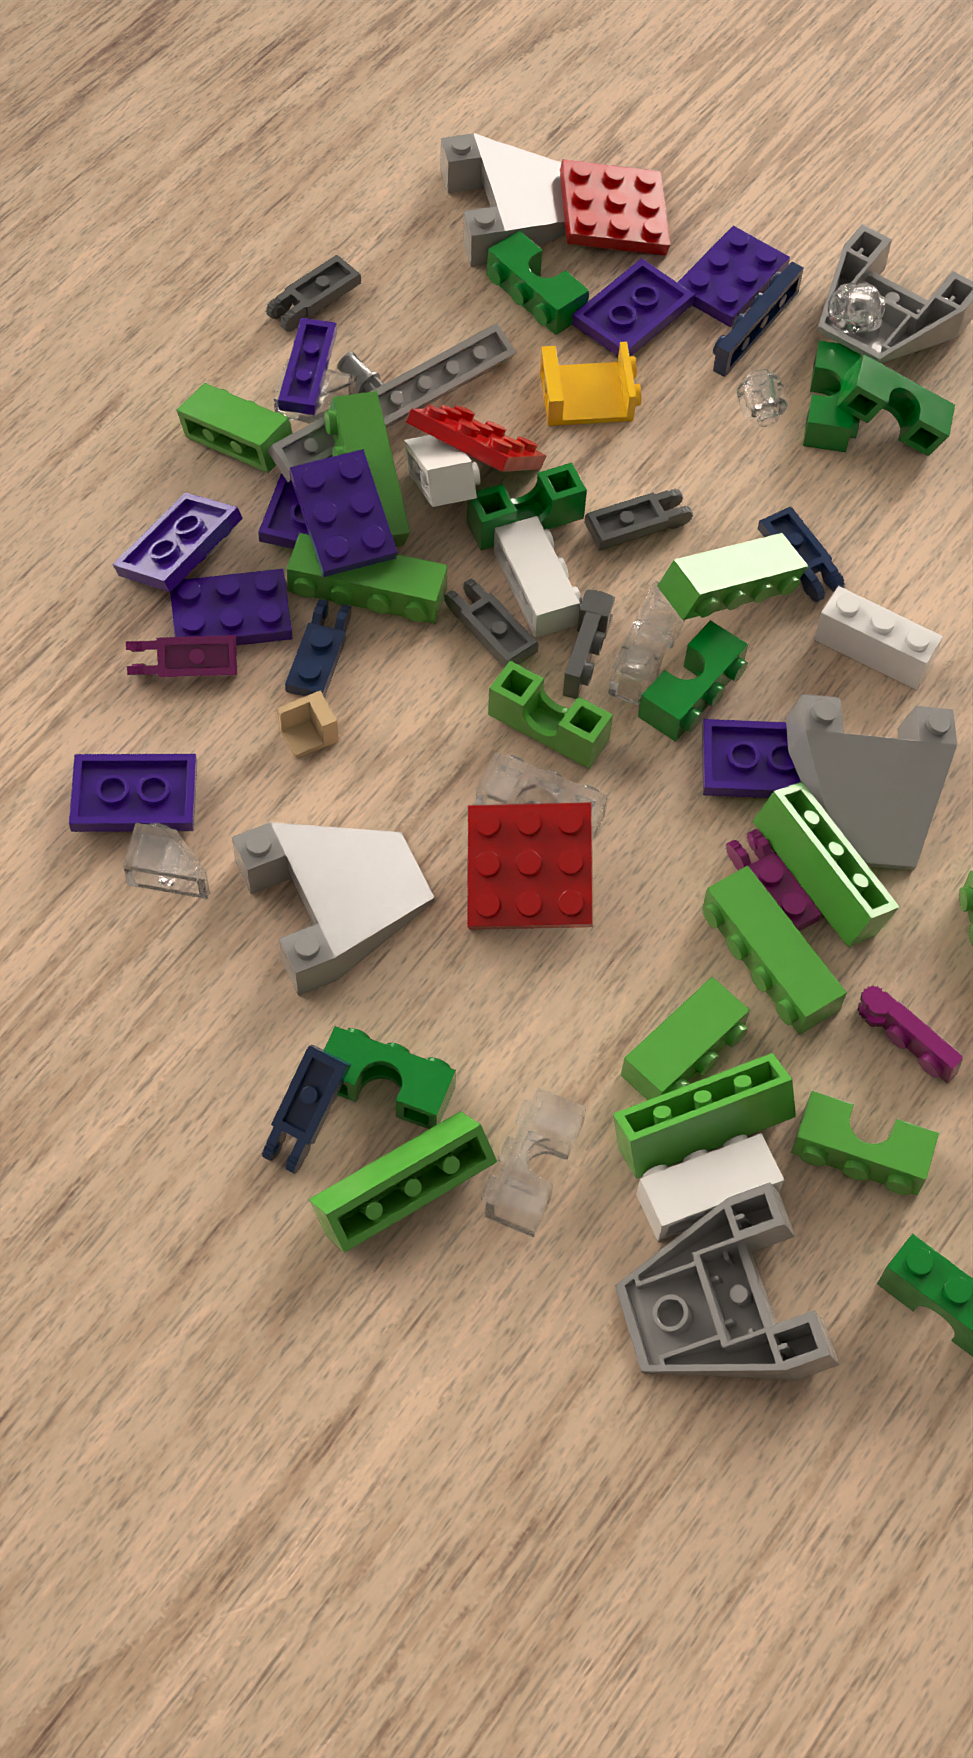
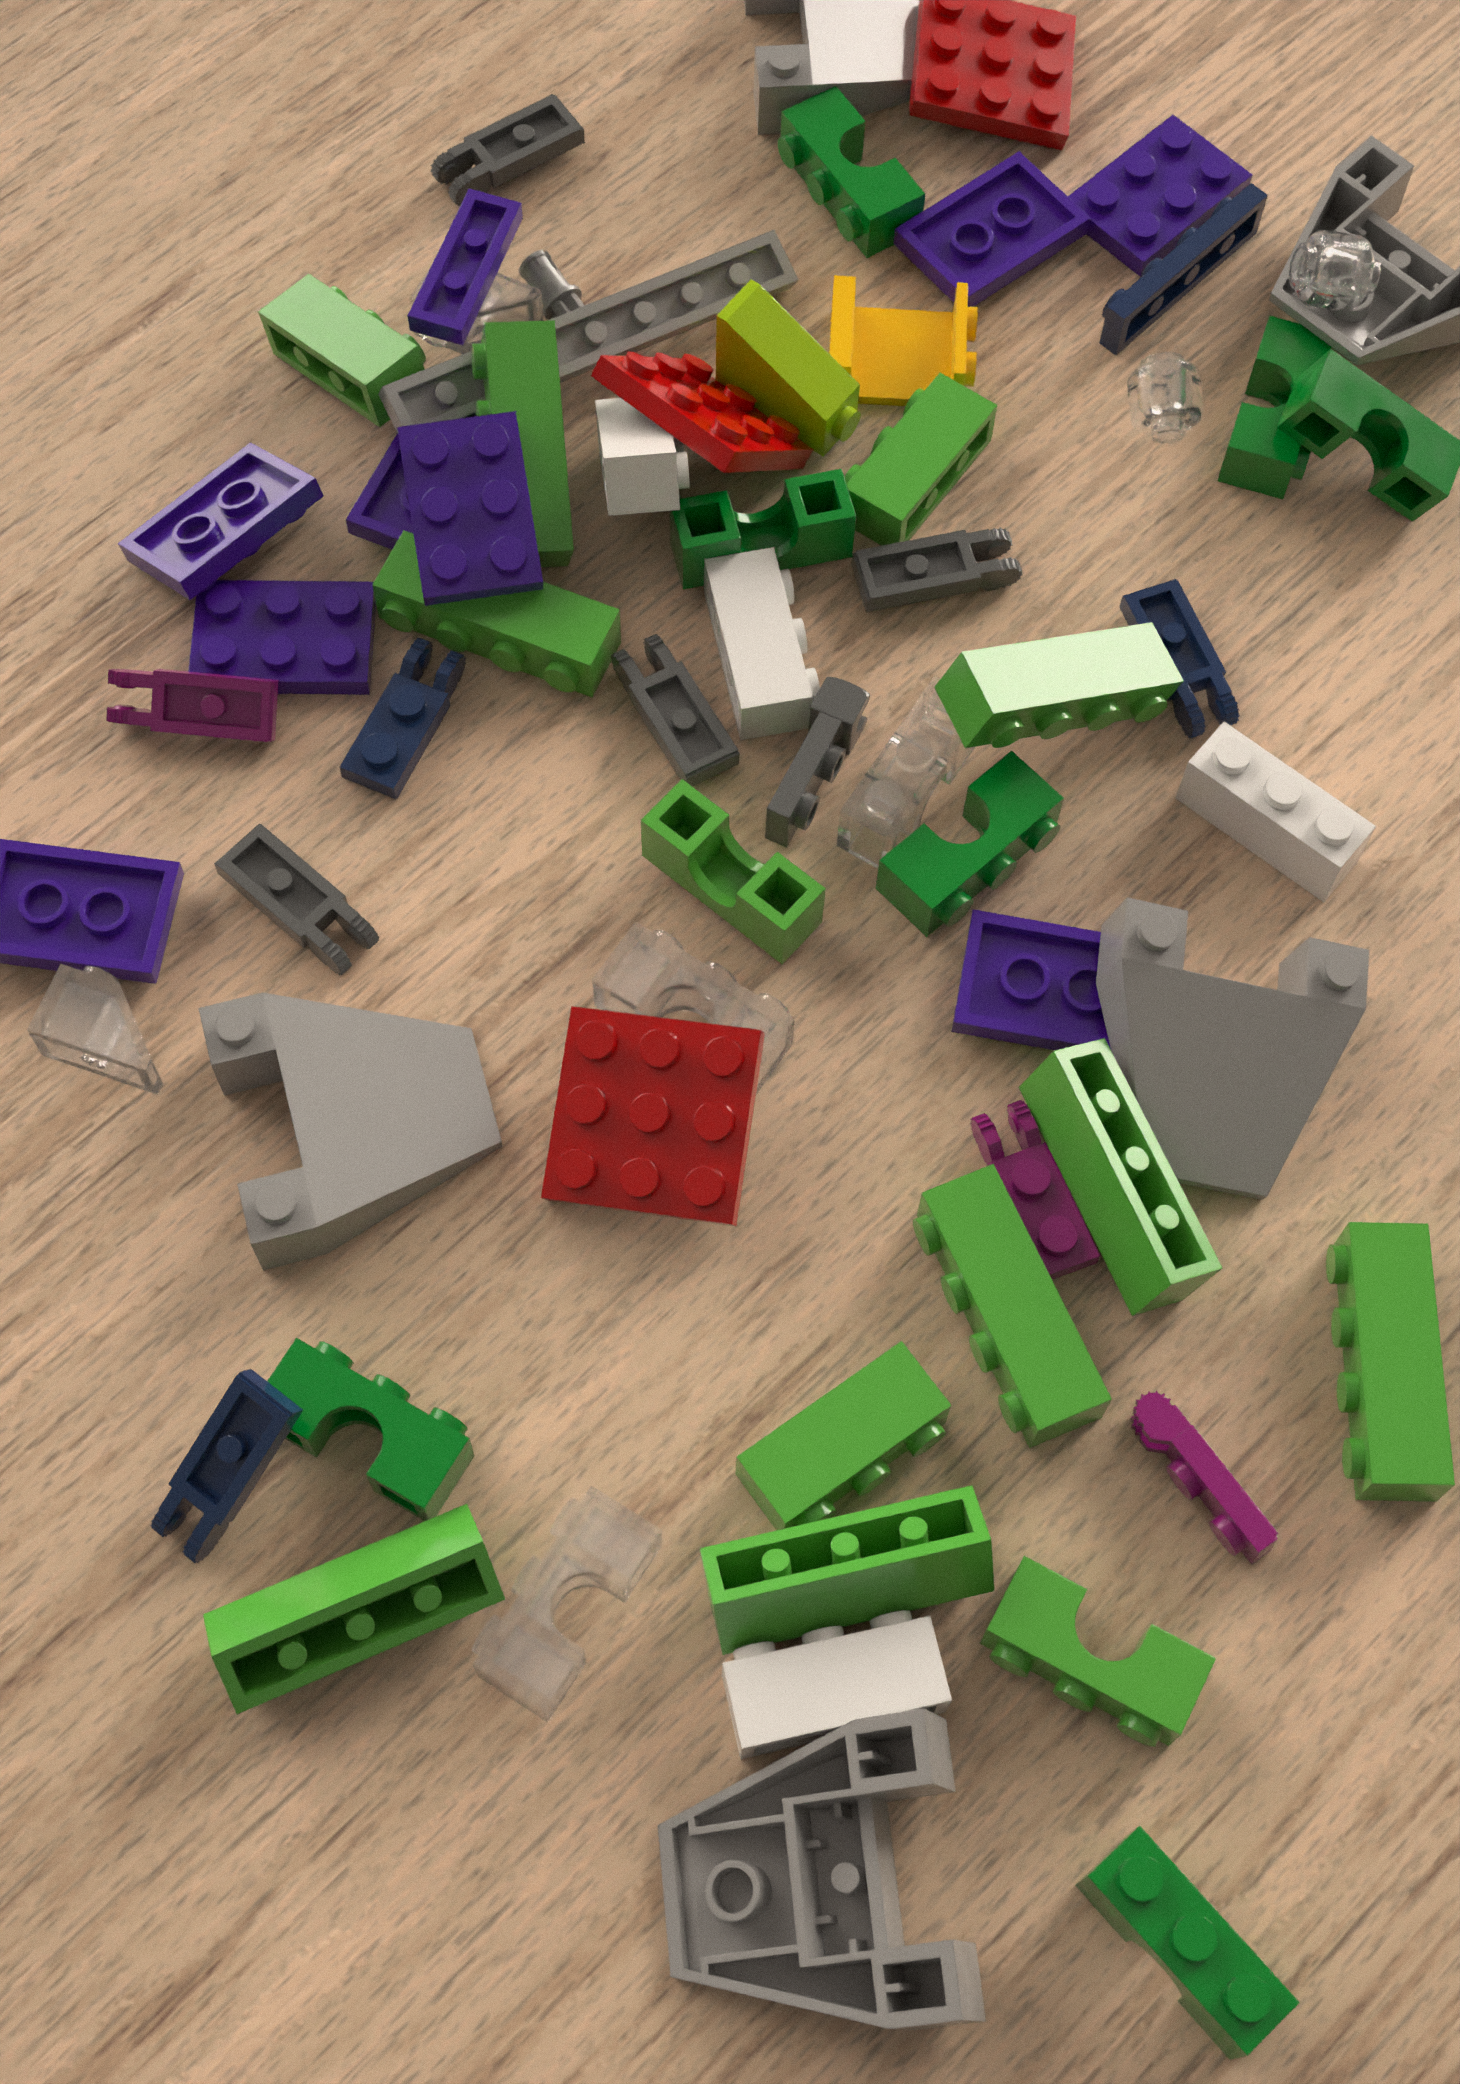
camera: 10 degrees right, 5 degrees up
(273, 766) = (293, 896): none -> dark grey hinge
(307, 724) = (359, 837): tan panel -> none
(522, 407) = (785, 369): none -> lime slope
(616, 452) = (919, 460): none -> bright green brick

